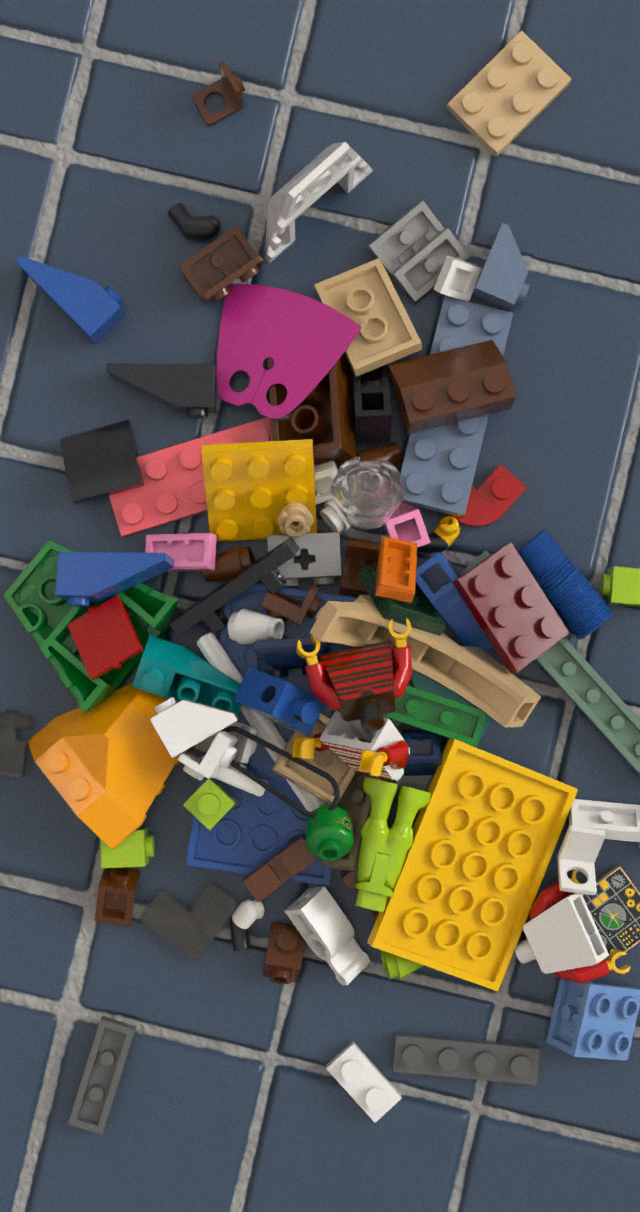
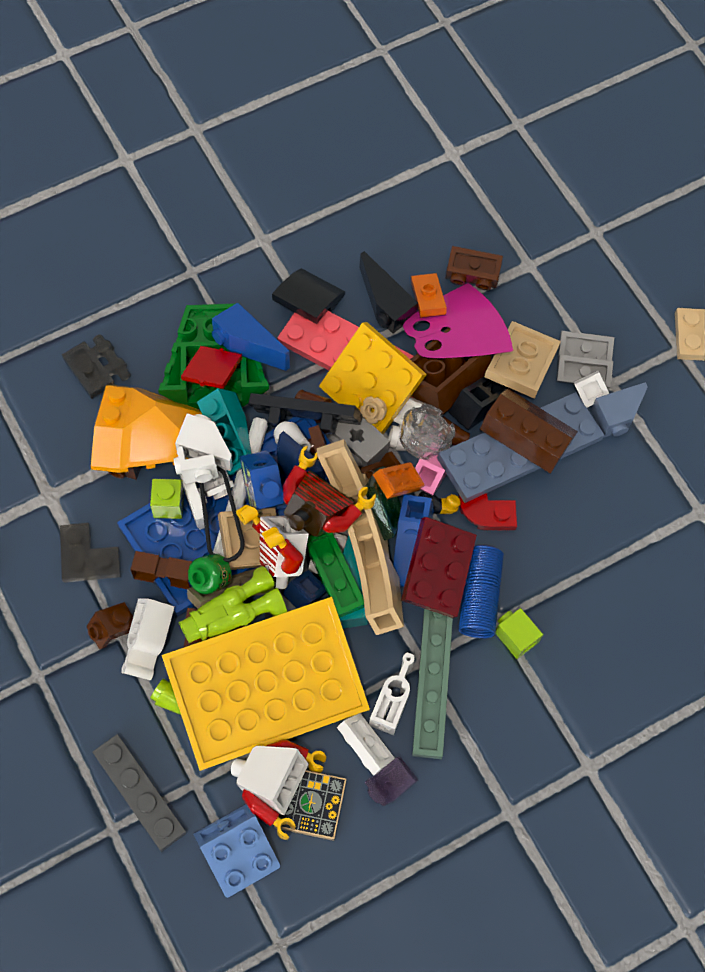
camera: 45 degrees right, 20 degrees down
(80, 298) = (386, 215): blue slope -> none
(117, 896) = (64, 501): reddish brown bracket -> none
(131, 852) = (99, 485): lime brick -> none
(189, 551) = (300, 375): bright pink plate -> none
(194, 227) = (480, 240): black arm -> none
(210, 341) = (428, 295): none -> orange plate
(229, 87) = (567, 199): reddish brown bracket -> none
(241, 920) = (110, 583): arm -> none
(332, 166) = (563, 262): white wedge -> none
(363, 1081) = (70, 742): white plate -> none
(579, 853) = (330, 742): white bracket -> none
(594, 765) = (396, 704): none -> white piece

